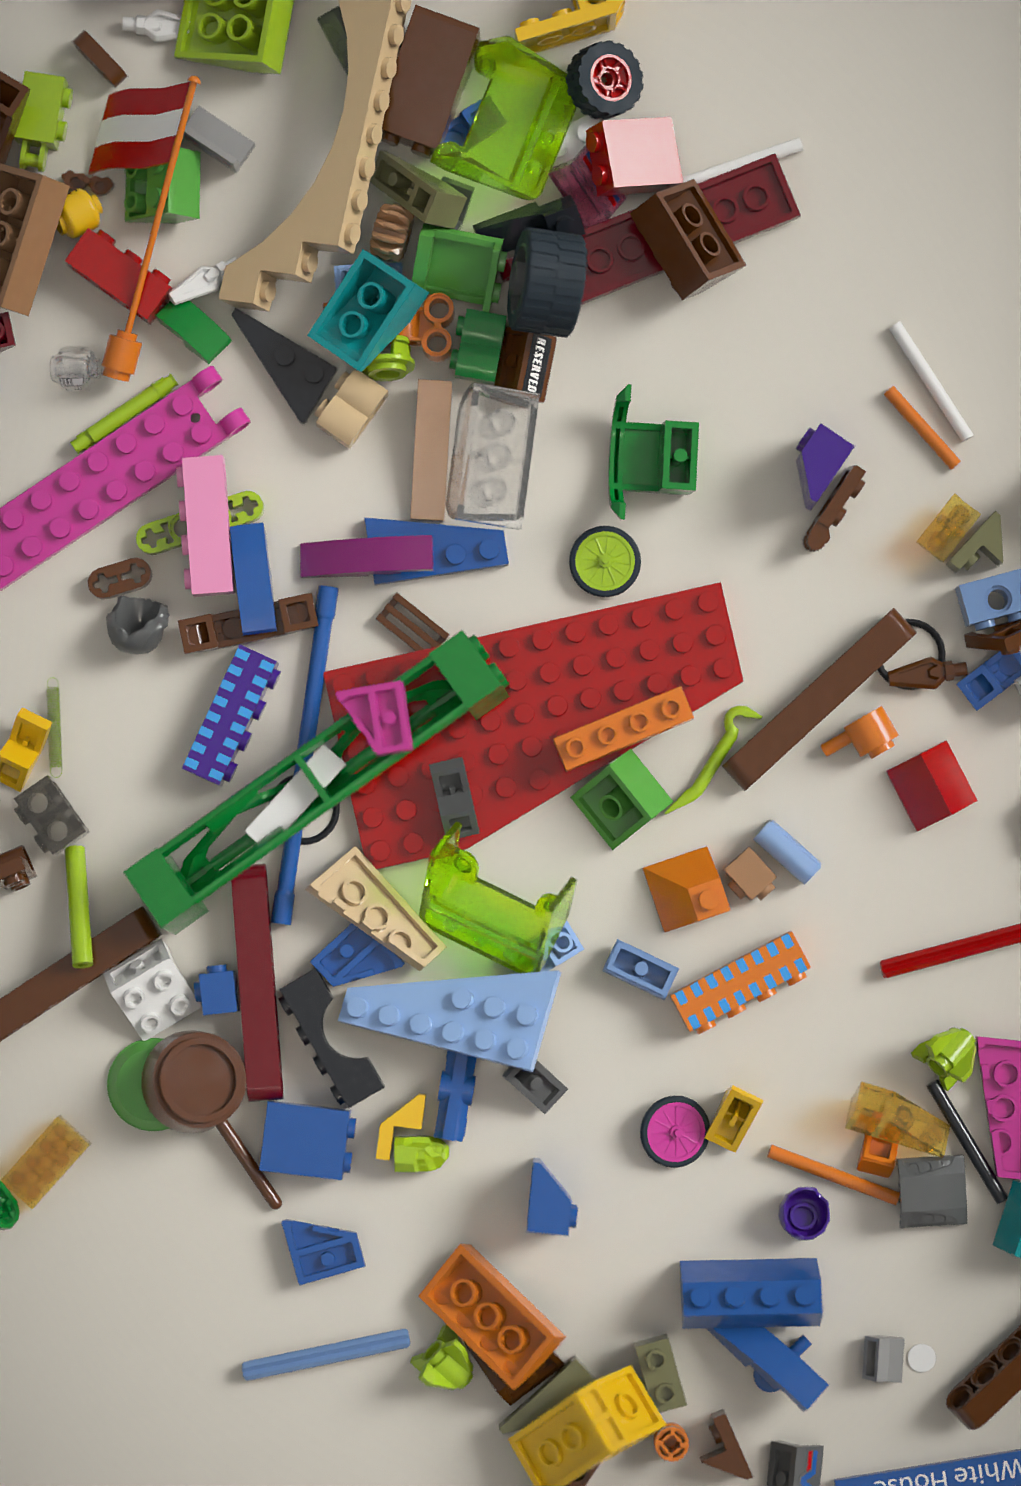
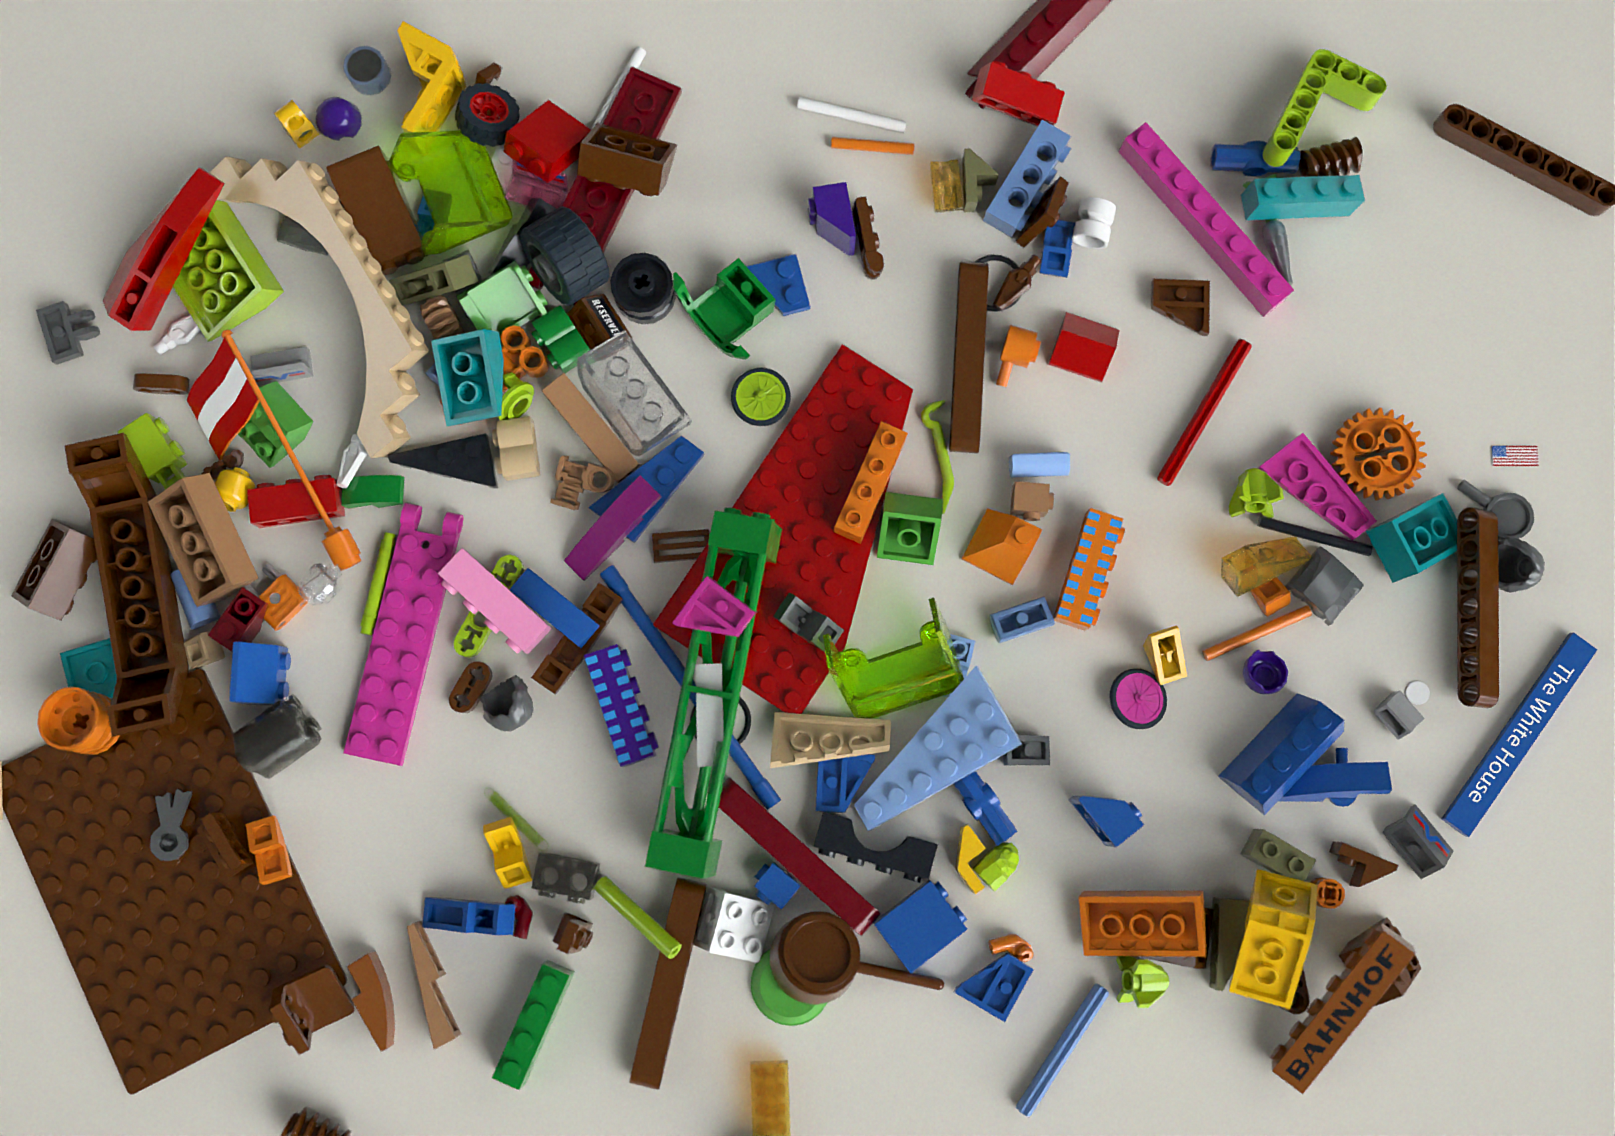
camera: 45 degrees left, 5 degrees down
(32, 347) = (281, 597): none -> orange piece
(369, 1232) = (1014, 945): none -> orange arm
(376, 479) = (575, 478): none -> medium nougat piece
(598, 349) = (643, 288): none -> black wheel
(640, 40) = (487, 74): none -> reddish brown tile
(720, 477) = (785, 283): none -> blue wing

